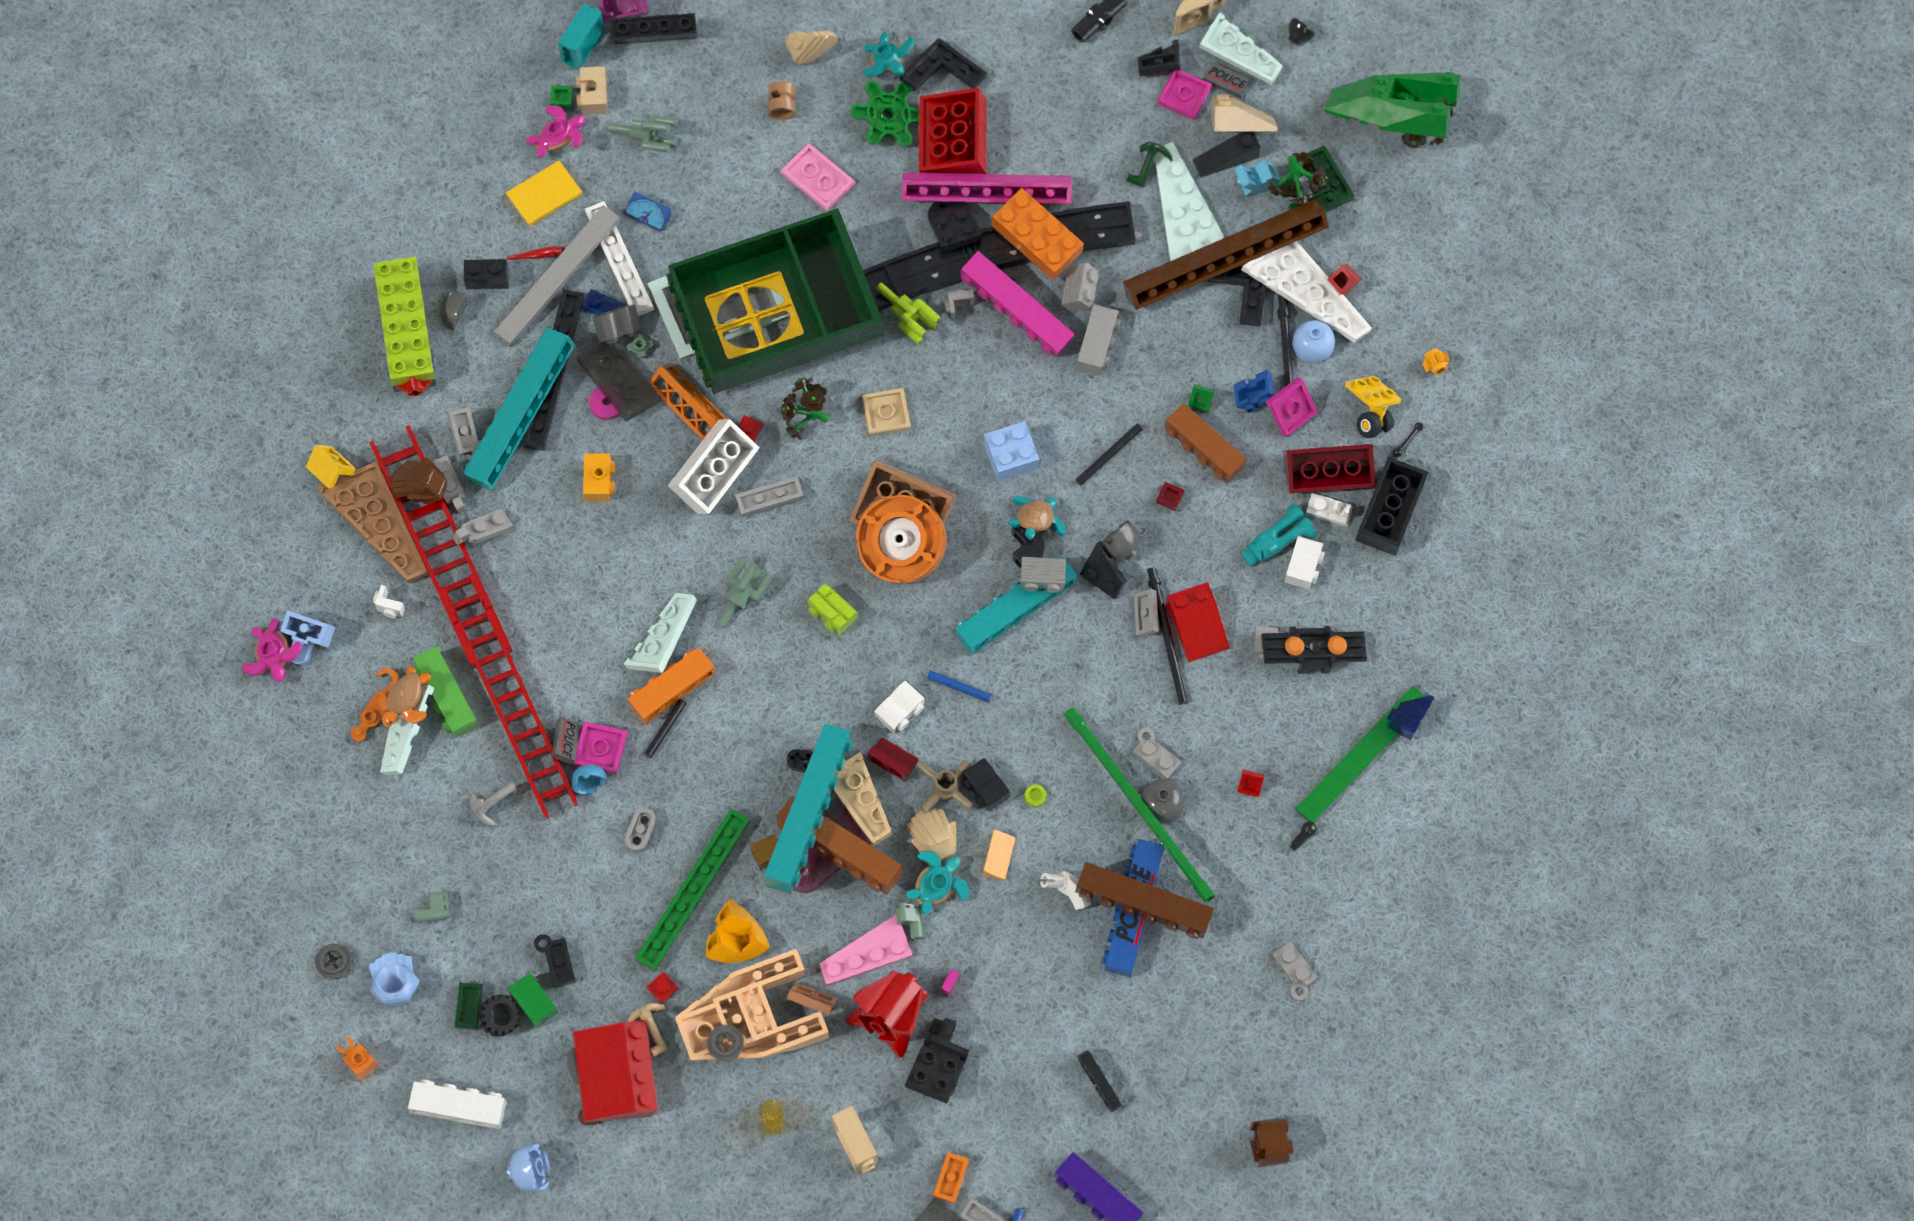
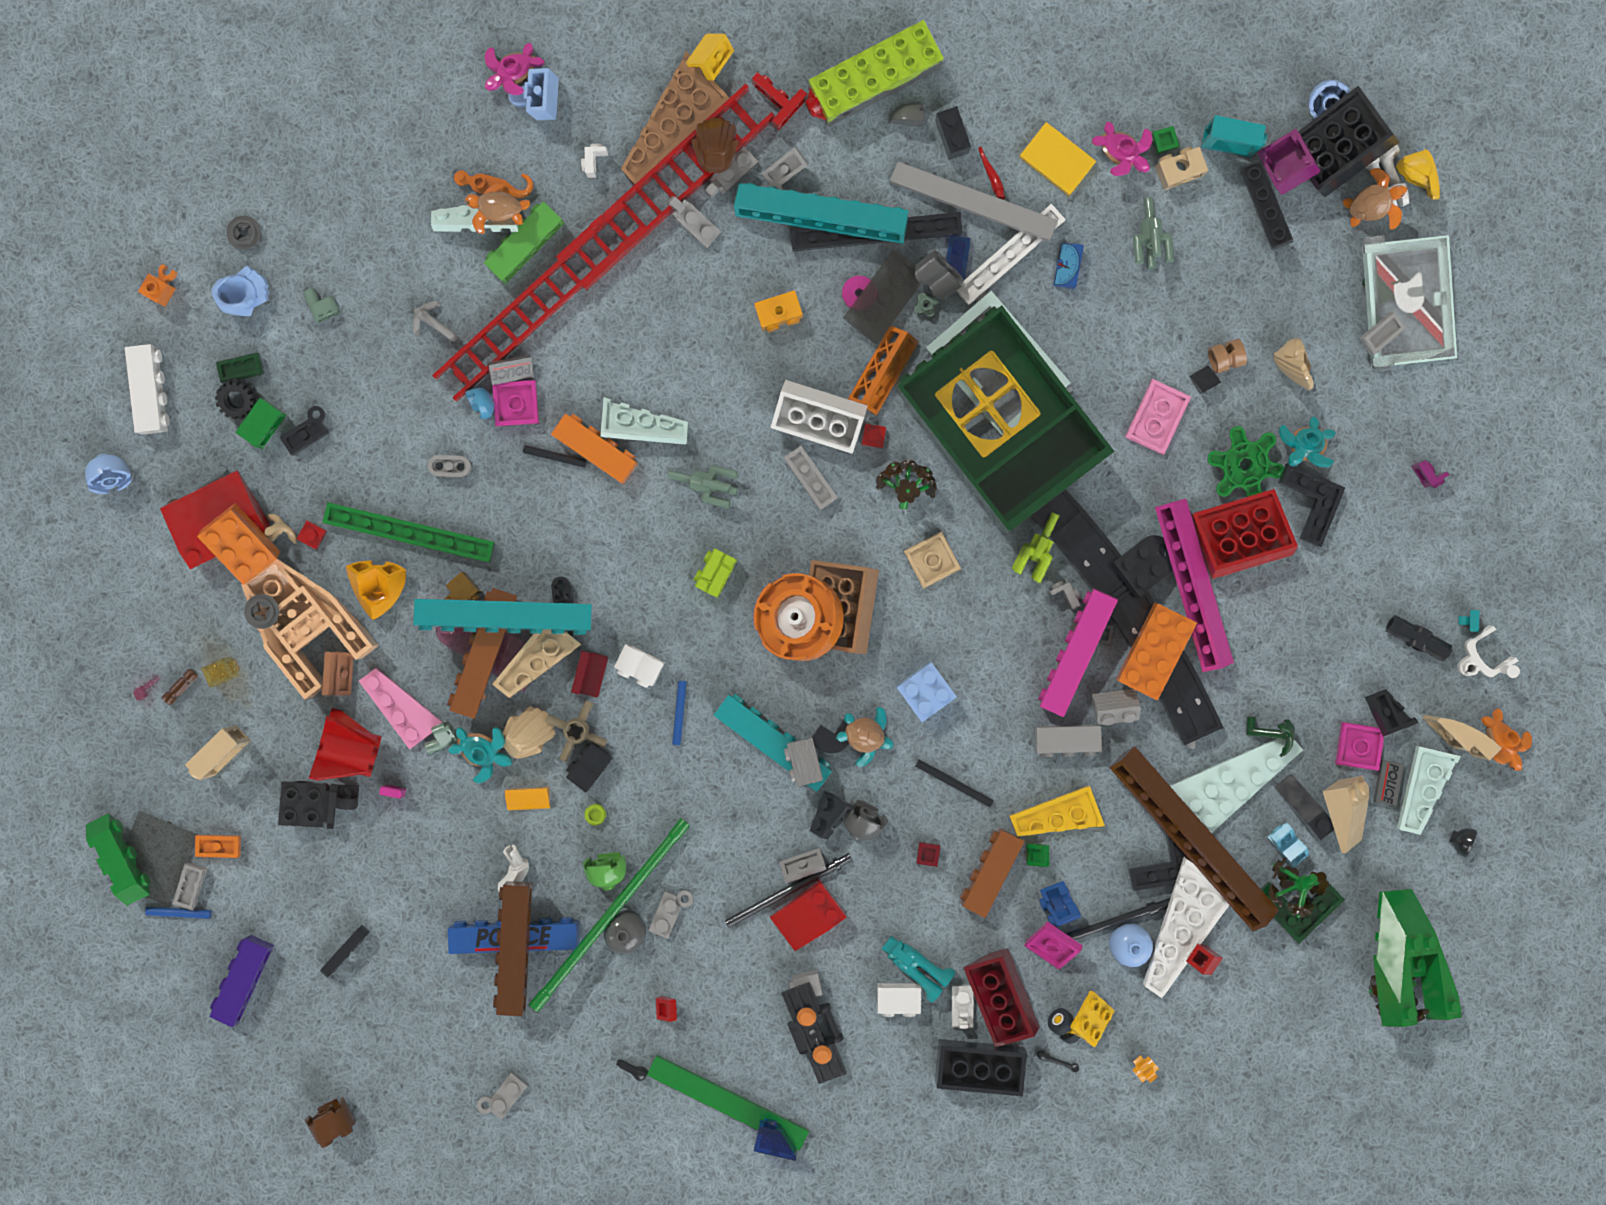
camera: 70 degrees right, 20 degrees up
(394, 418) = (779, 99): none -> red bracket
(650, 1042) = (239, 544): none -> orange brick
(766, 1210) = (140, 692): none -> clear pink hand
(773, 1168) = (180, 686): none -> reddish brown axle
(797, 127) = (1204, 379): none -> black slope
(1094, 796) = (606, 870): none -> bright green cylinder
(1168, 363) = (1059, 814): none -> yellow wing

